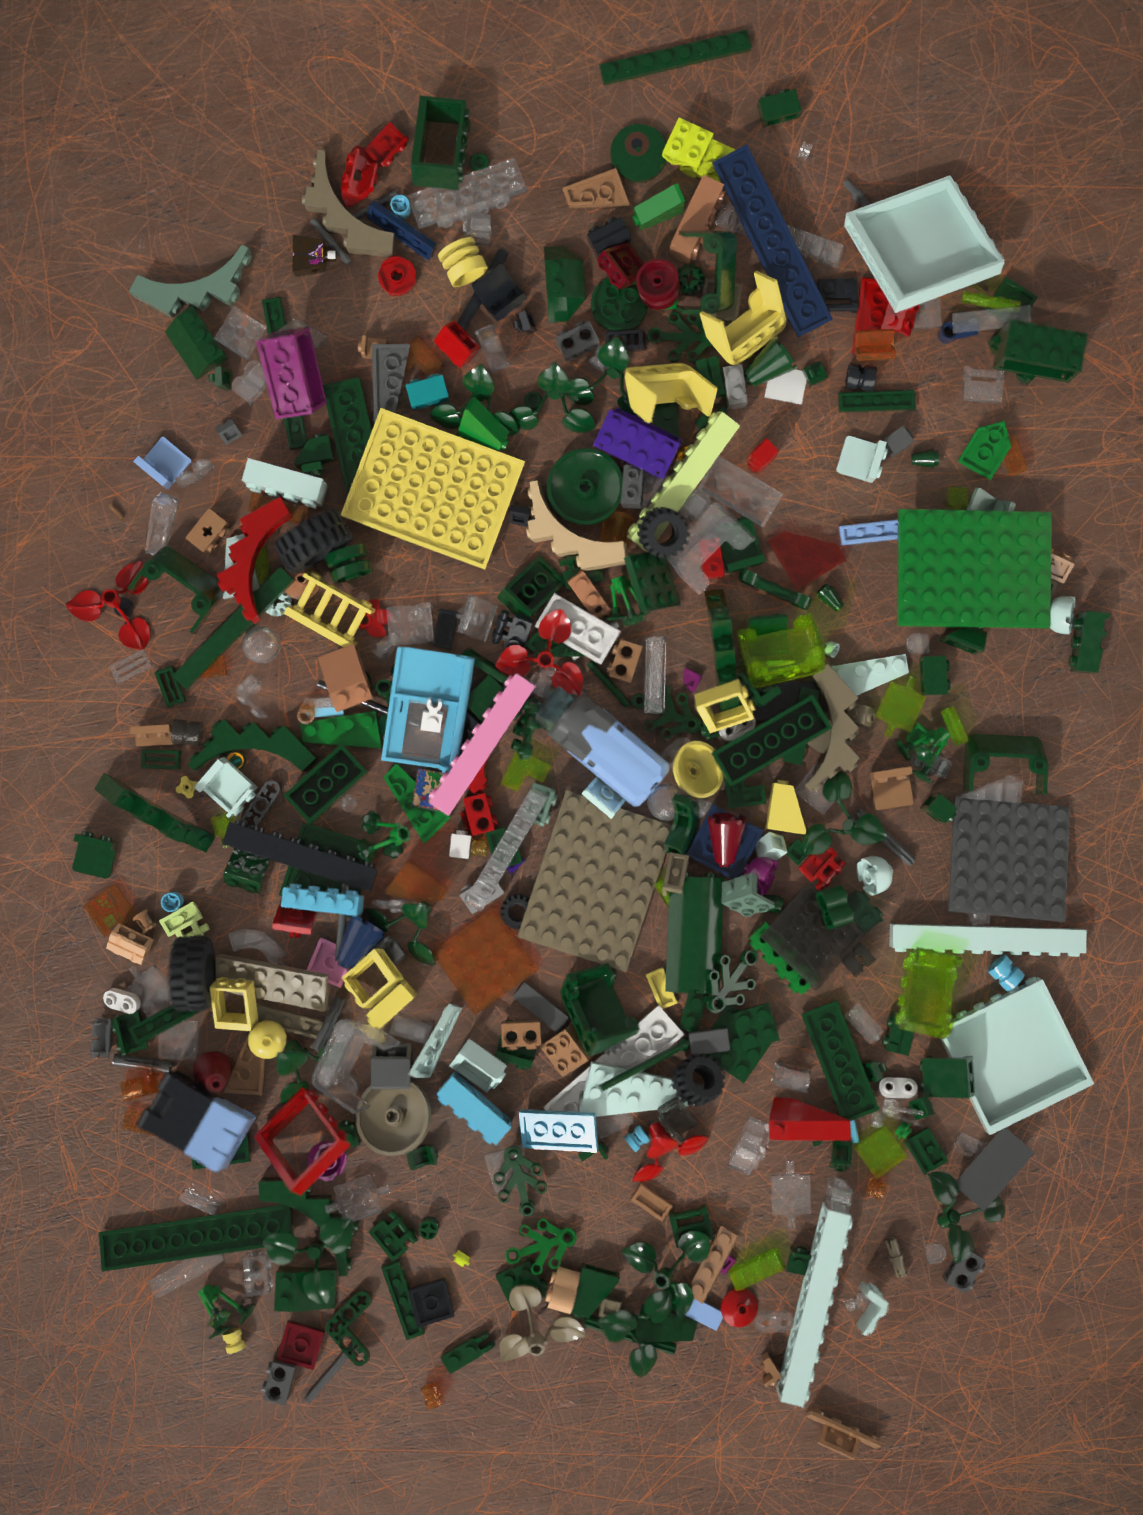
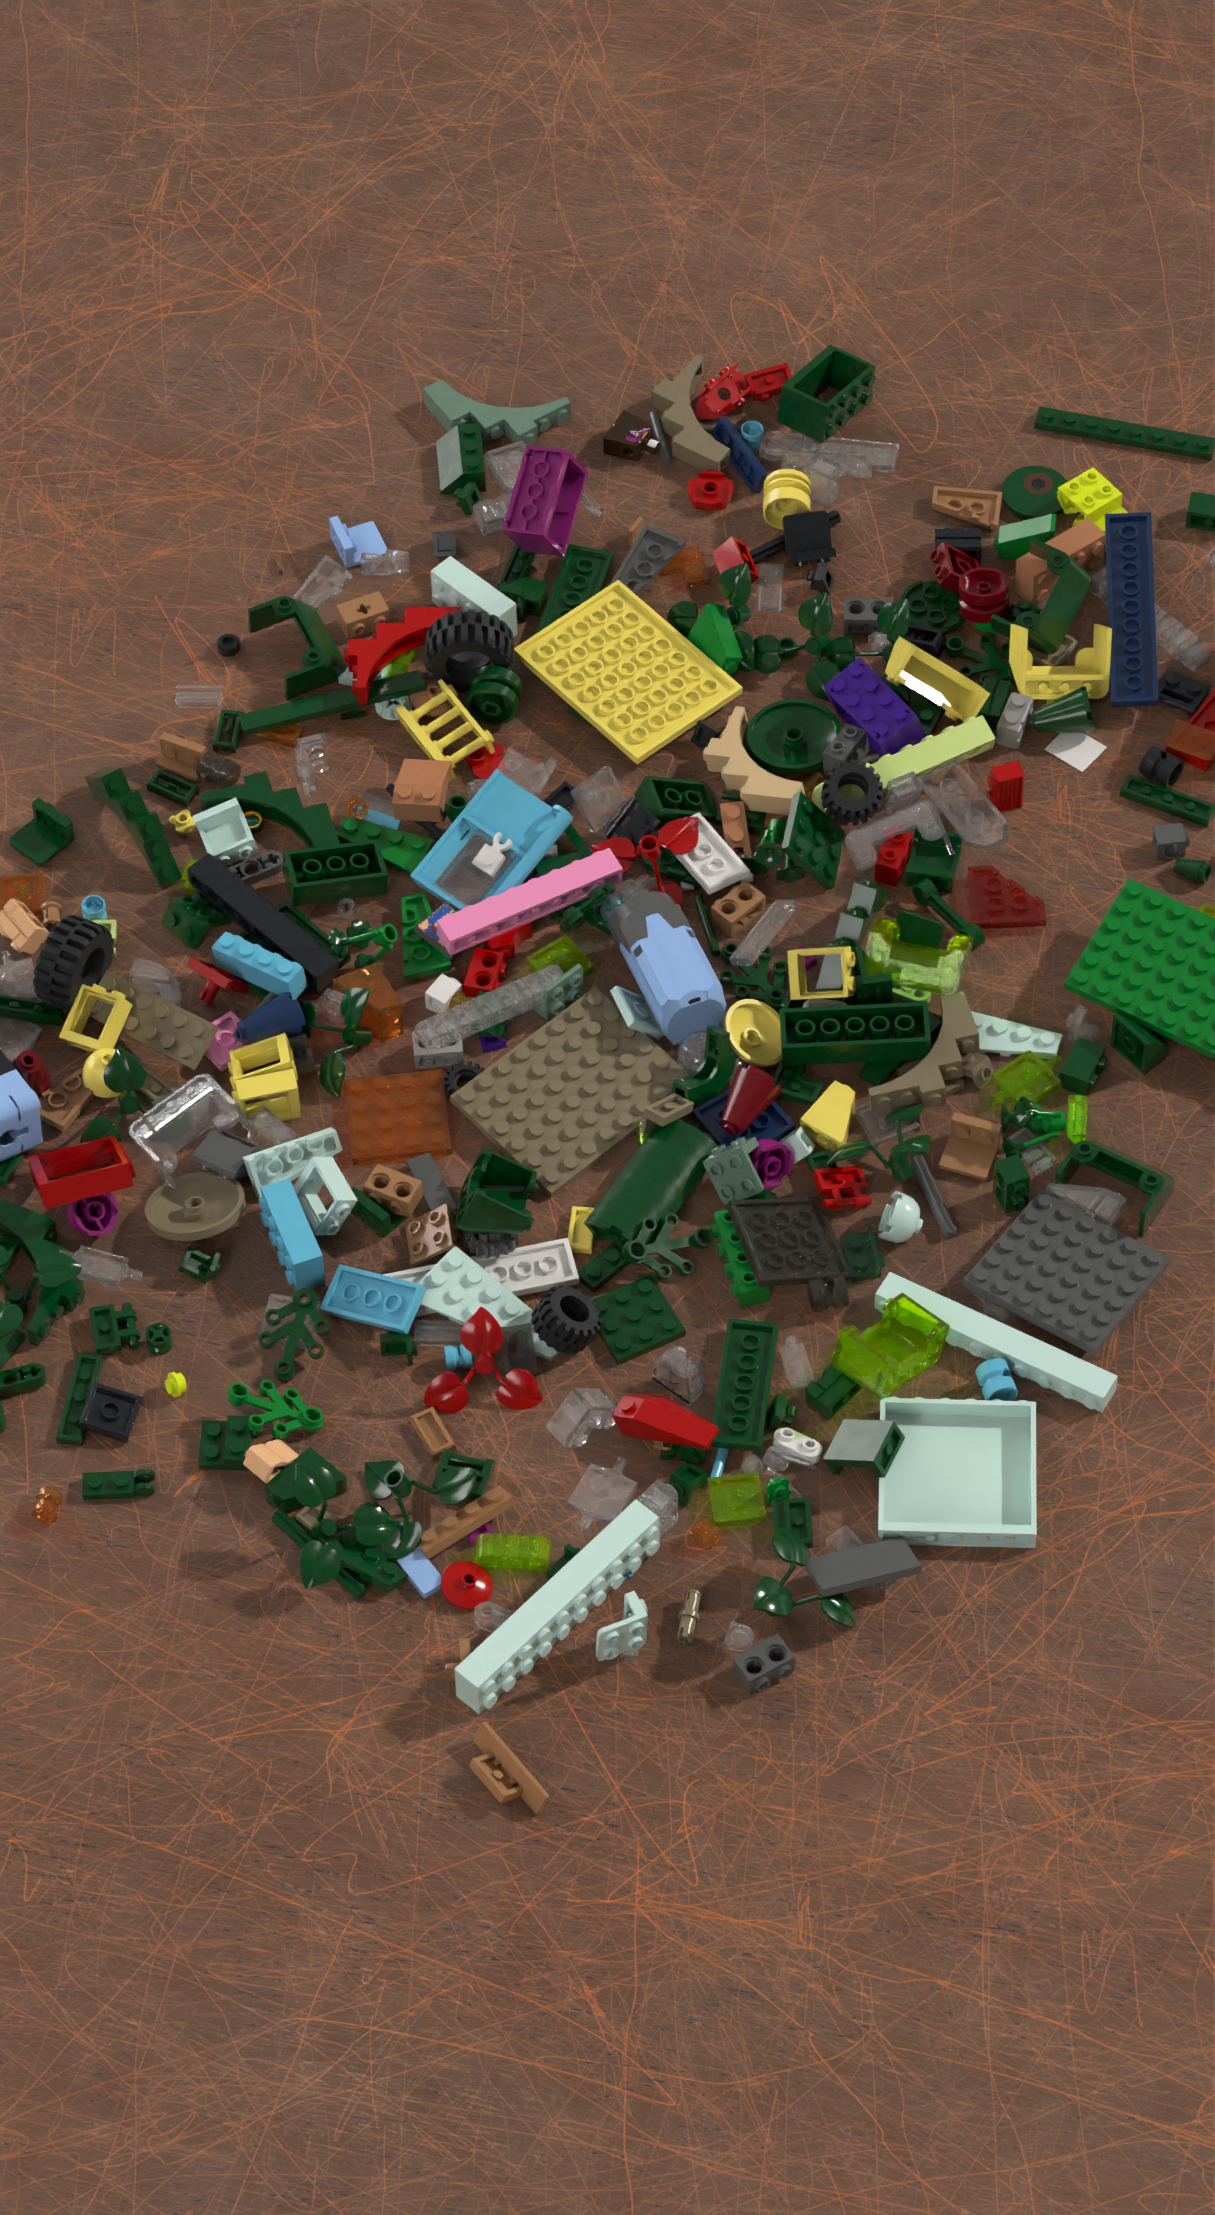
camera: 25 degrees right, 35 degrees down
(87, 607) = (193, 627): red plant -> none
(261, 644) = (350, 732): clear cylinder -> none
(351, 1131) = (131, 1208): dark green bracket -> none
(427, 392) = (672, 589): teal brick -> none
(479, 161) = (860, 433): dark green tile -> none
(514, 1345) = (176, 1496): dark tan plant -> none
(563, 283) = (881, 565): dark green wedge -> none
(681, 1045) = (514, 1277): dark green bar -> none
(709, 1041) = (606, 1288): dark grey panel -> none
(755, 1026) = (666, 1303): dark green plate -> none
(815, 373) = (1113, 749): dark green tile -> none
(829, 596) = (1006, 946): dark green cone -> none
(831, 649) = (983, 992): light aqua hinge -> none
(835, 907) = (832, 1224): dark green brick -> none
(861, 459) = (1119, 840): light aqua bracket -> none
(868, 532) = (1079, 908): light blue tile -> none
(922, 1104) = (814, 1475): dark green bracket -> none

